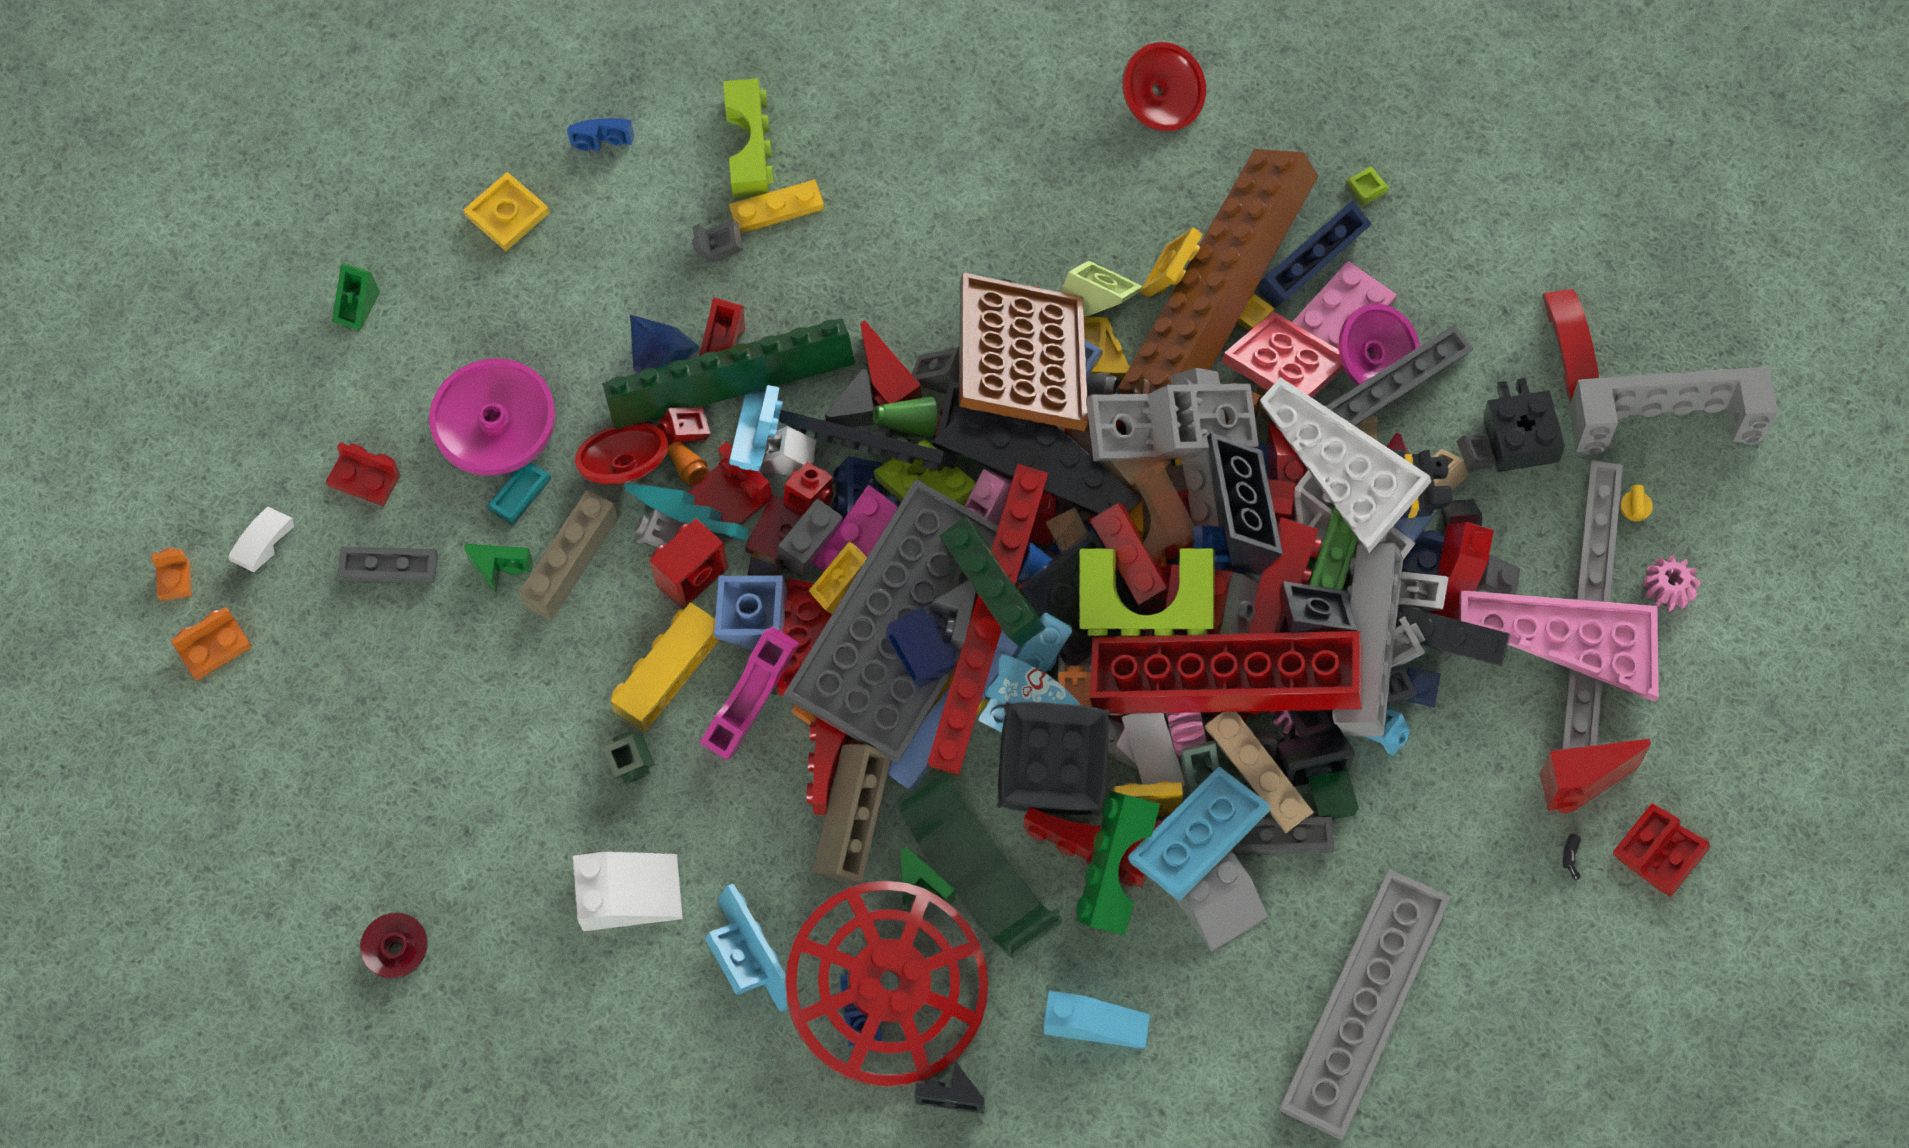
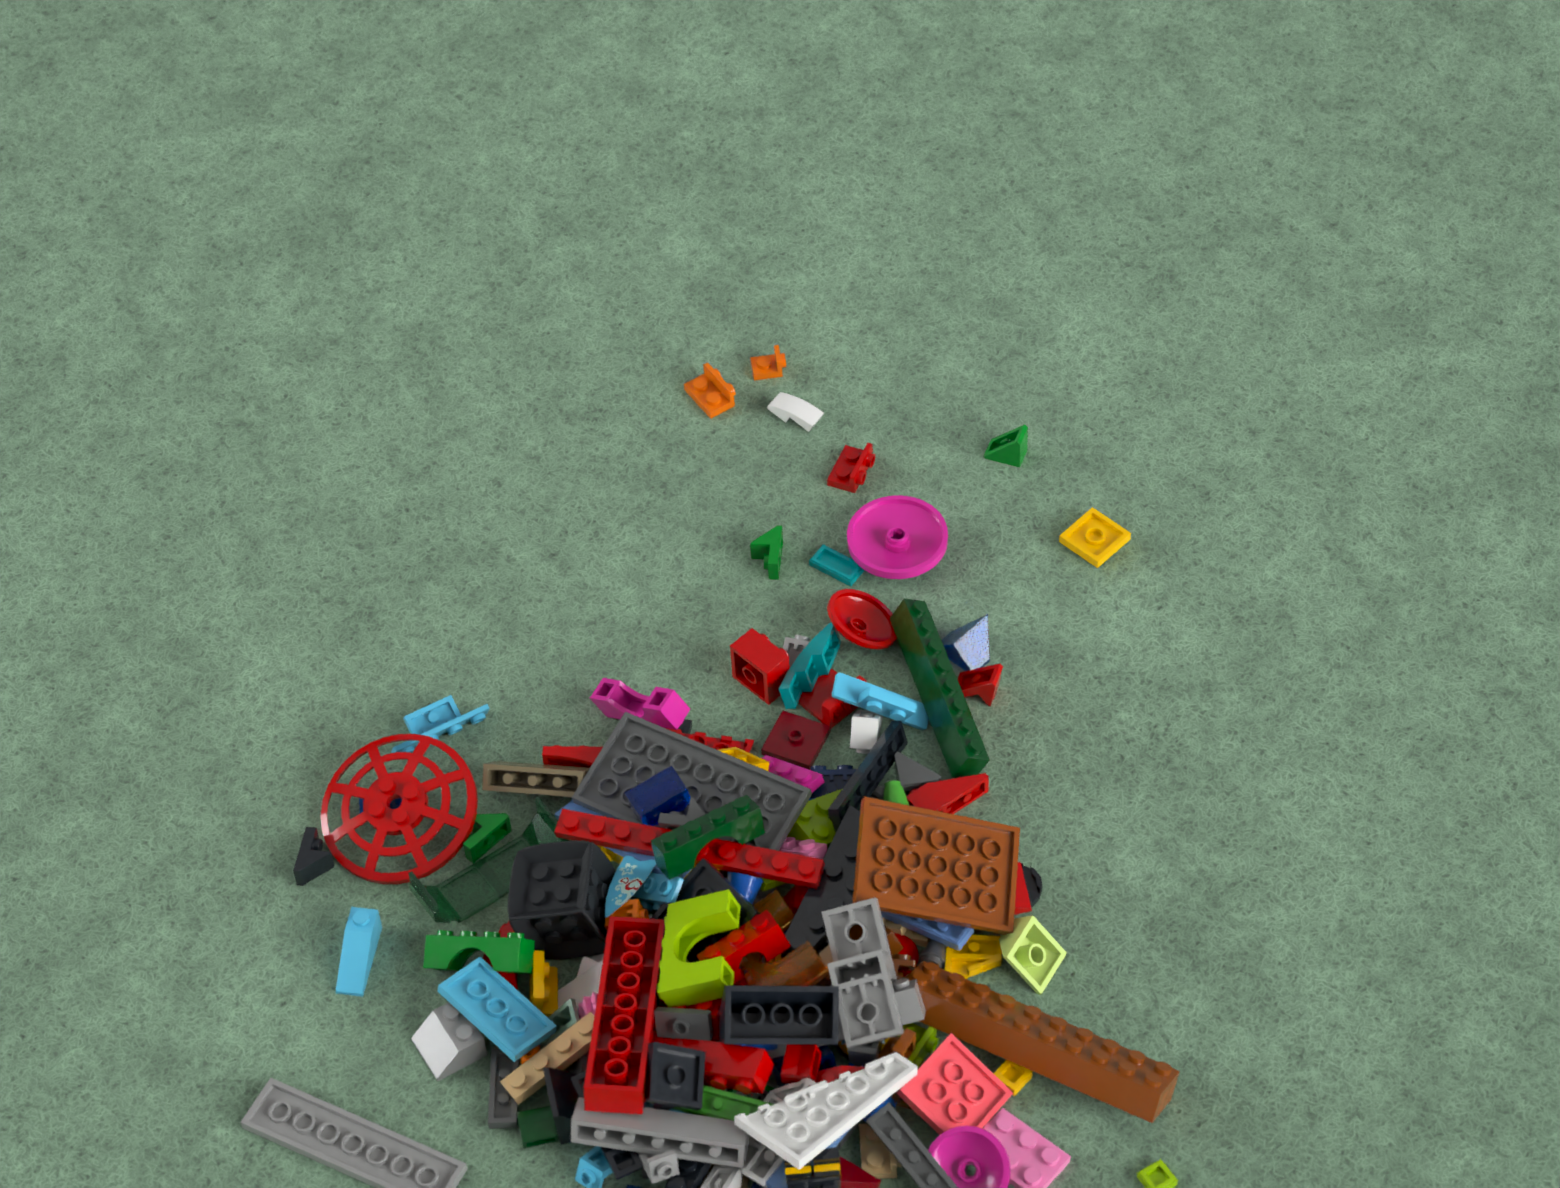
camera: 90 degrees right, 15 degrees down
(386, 932) = (462, 506): dark red dish -> none
(387, 565) = (772, 487): dark grey plate -> none
(568, 555) = (775, 594): dark tan brick -> none
(591, 133) = (1172, 592): blue slope -> none
(626, 889) = (494, 647): white slope -> none
(629, 757) = (598, 639): dark green brick -> none
(665, 668) = (677, 663): yellow brick -> none
(684, 424) = (893, 664): red bracket -> none
(687, 464) = (860, 666): orange cone -> none
(717, 241) = (1070, 676): dark grey bracket -> none
(748, 608) = (719, 709): medium blue slope -> none
(749, 167) = (1145, 698): lime arch -> none
(765, 565) = (758, 723): dark brown tile -> none
(777, 206) = (1111, 721): yellow plate -> none
(806, 486) = (829, 745): red brick -> none
(808, 537) = (781, 742): dark grey brick -> none
(1171, 262) = (1060, 1007): yellow plate -> none
(1178, 82) = (1228, 996): red dish -> none
(1313, 254) = (1070, 1120): dark blue brick -> none

